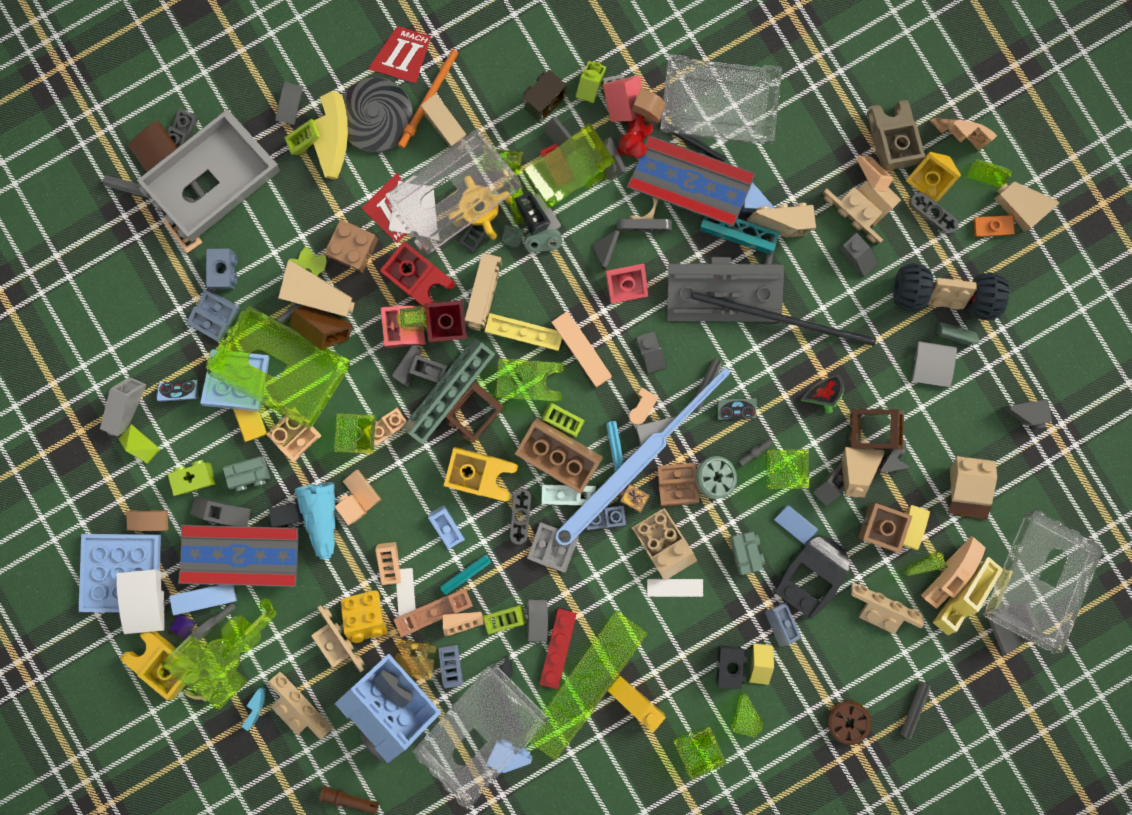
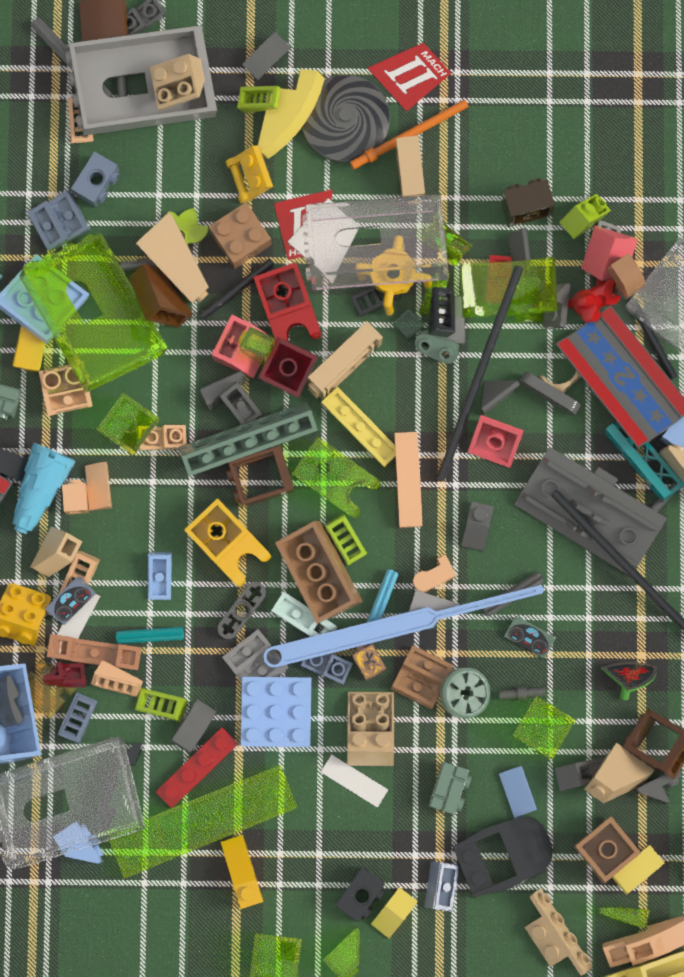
camera: 30 degrees right, 5 degrees down
(234, 159) = (177, 80): none -> tan slope
(333, 193) = (254, 171): none -> yellow plate
(360, 557) = (55, 552): none -> tan slope
(372, 288) = (236, 289): none -> black bar
(393, 585) = (70, 600): none -> slope
(424, 641) = (67, 675): none -> dark red slope
(586, 240) = (479, 374): none -> black piece
(589, 574) = (275, 711): none -> light blue plate

